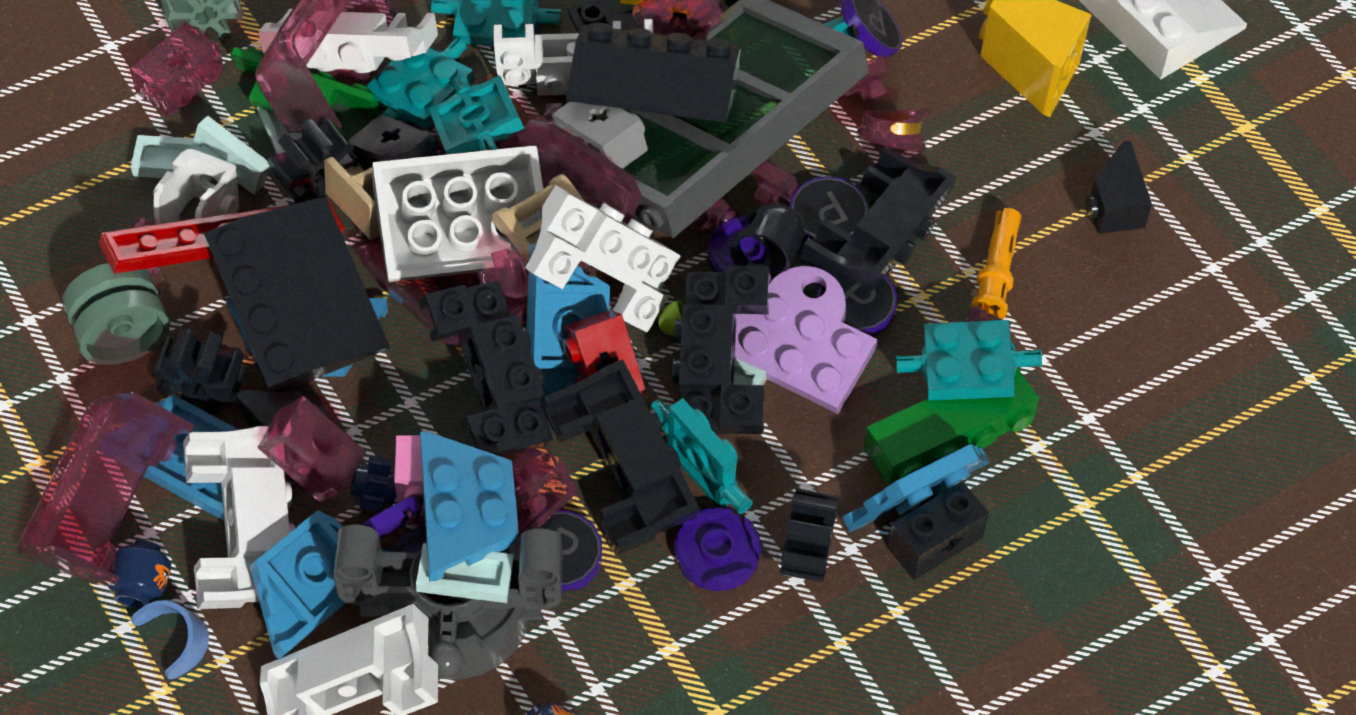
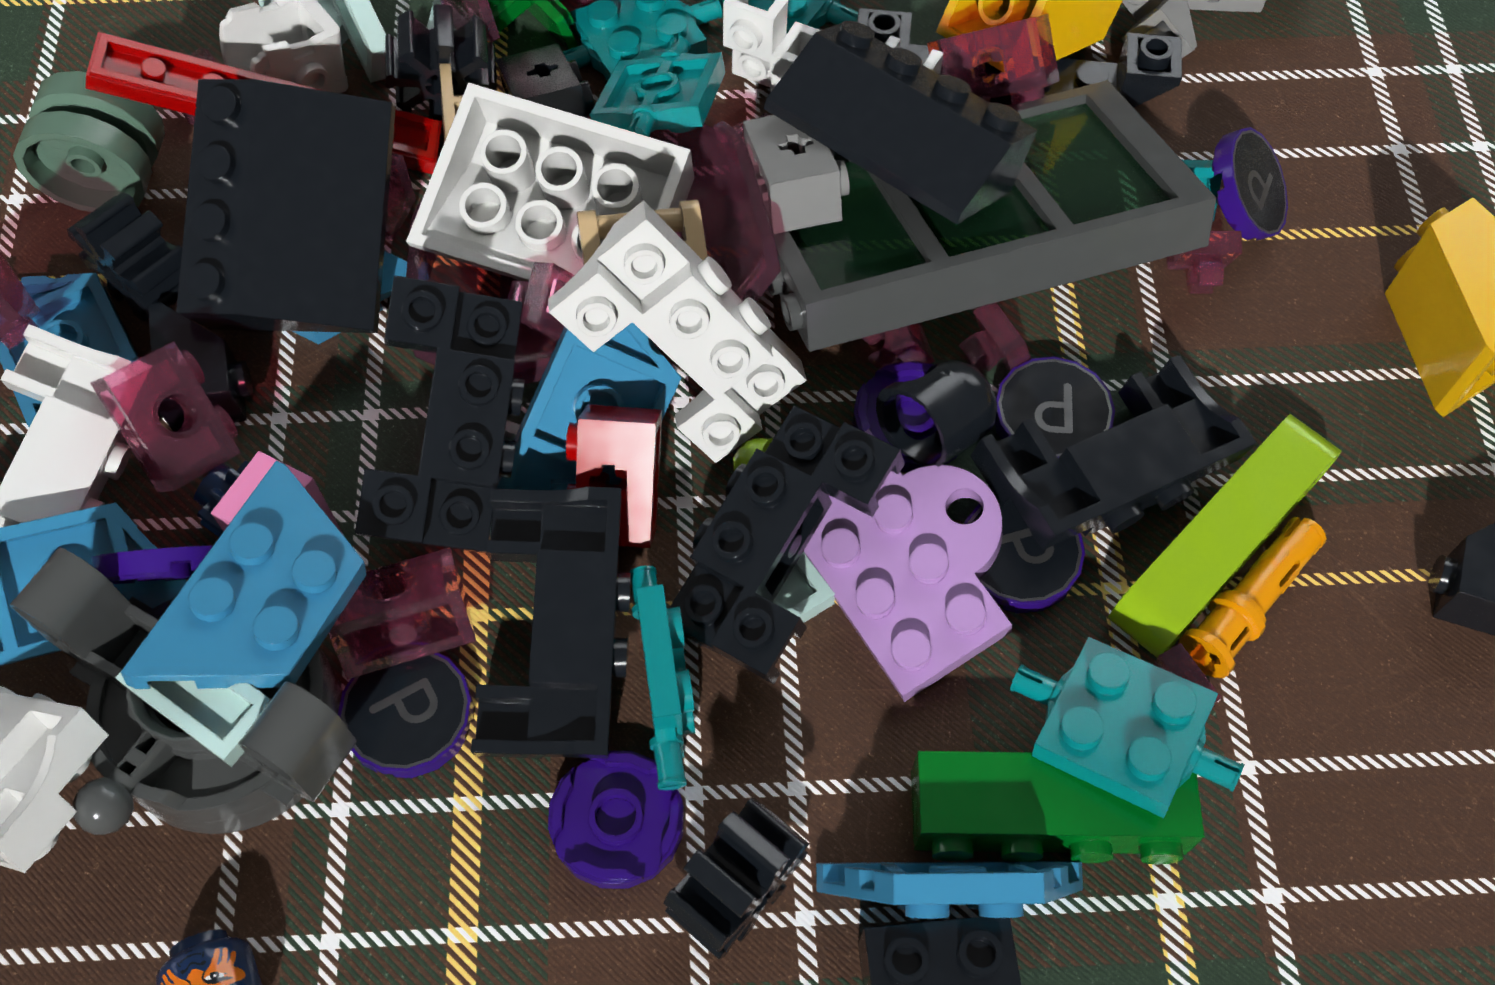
camera: 30 degrees right, 5 degrees up
(895, 128) = (1205, 338): clear pink piece -> none
(965, 238) = (1223, 536): none -> lime beam

